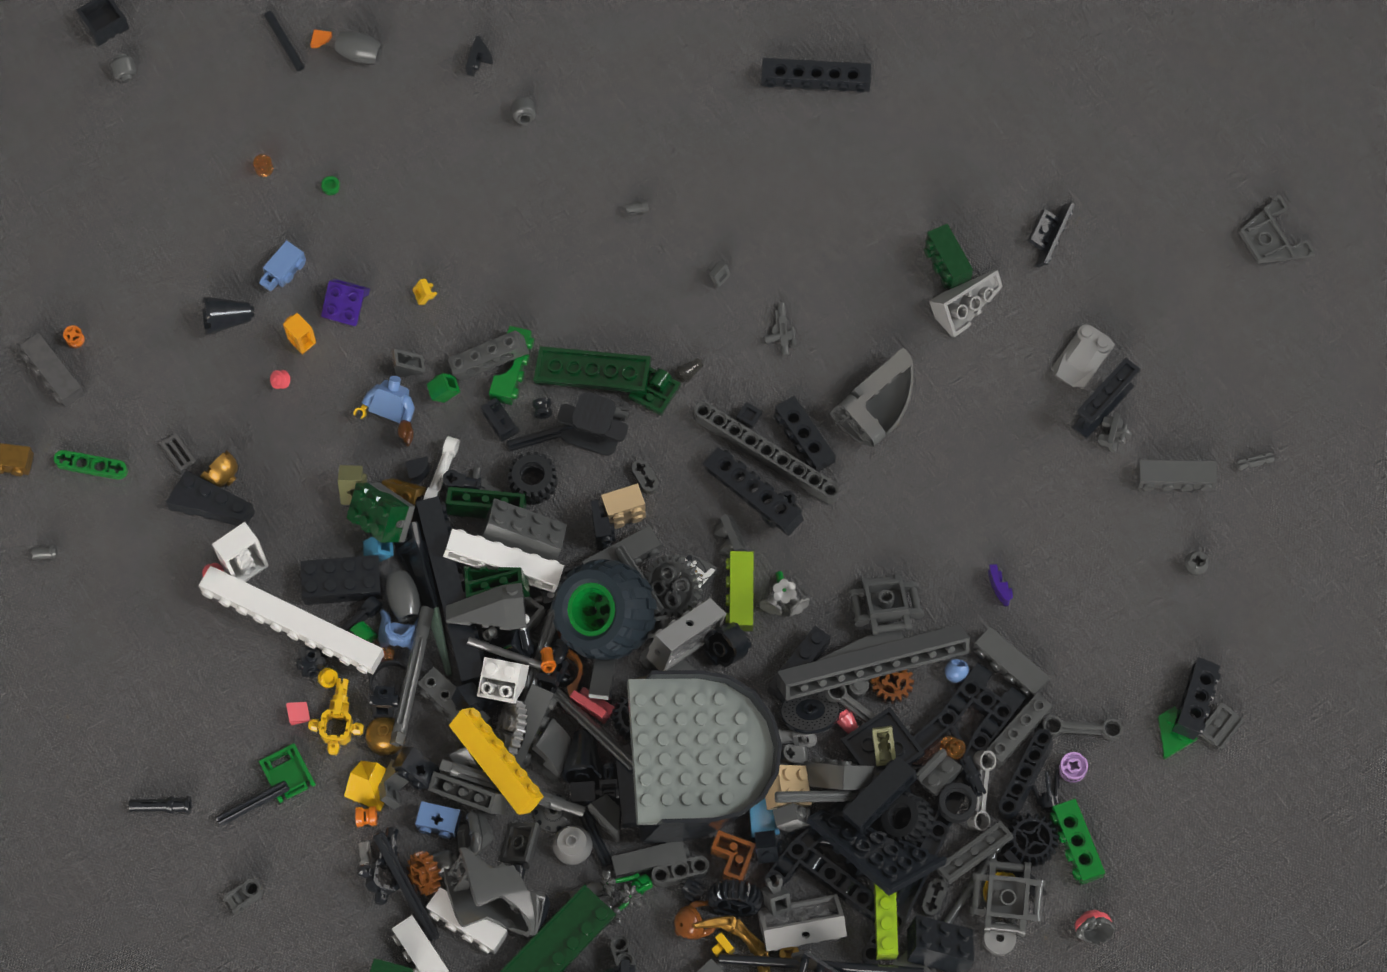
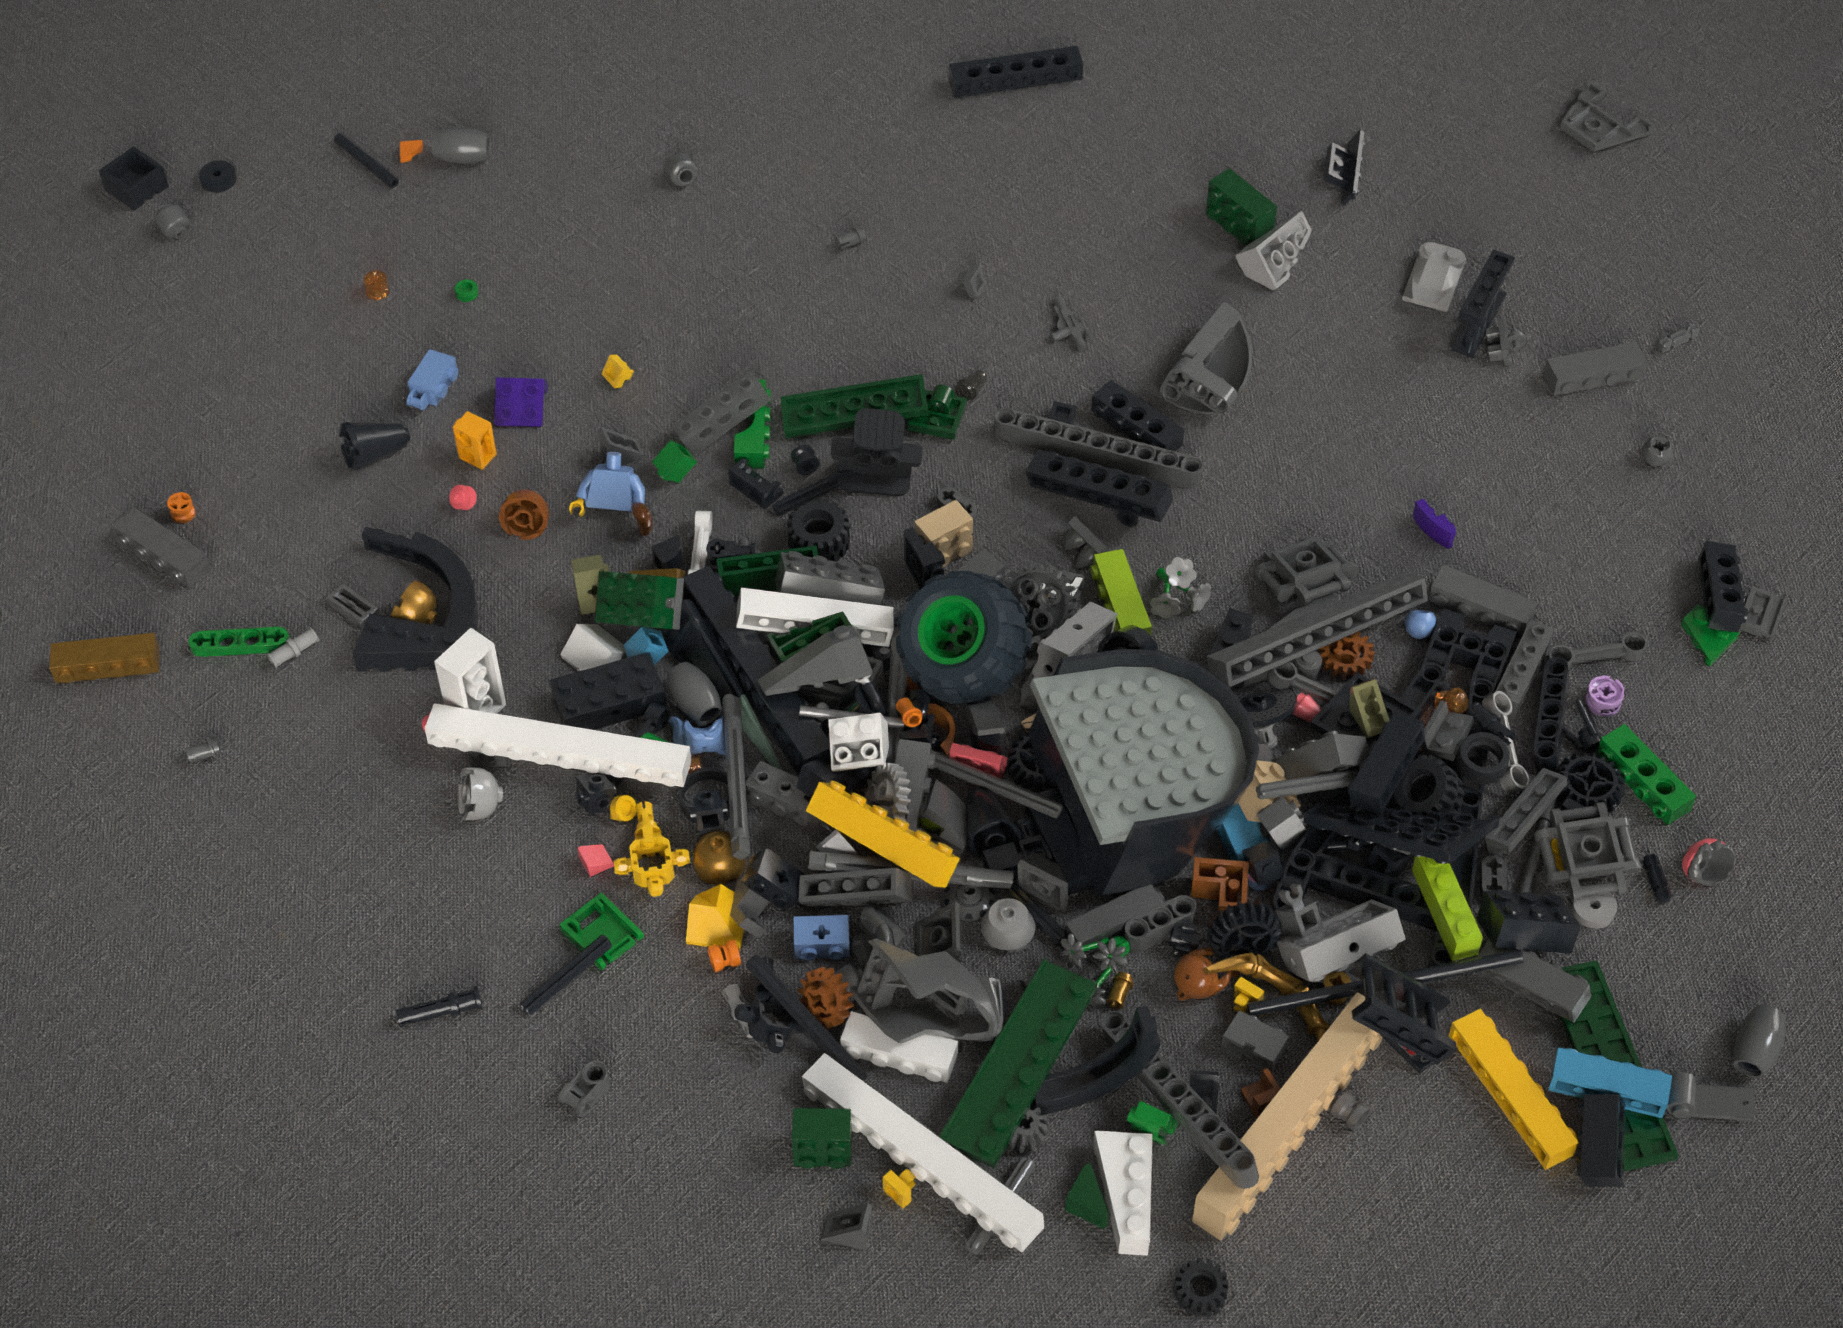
camera: 15 degrees left, 15 degrees down
(127, 480) = (293, 647): none -> light grey pin
(165, 22) = (217, 176): none -> black piece
(228, 641) = (478, 794): none -> light grey cylinder
(259, 469) = (438, 559): none -> black arch
(321, 407) = (524, 514): none -> dark orange cylinder
(342, 537) = (591, 647): none -> white slope
(478, 54) = (610, 127): black slope -> none
(635, 916) = (1122, 984): none -> pearl gold pin
(1054, 928) = (1657, 878): none -> black axle

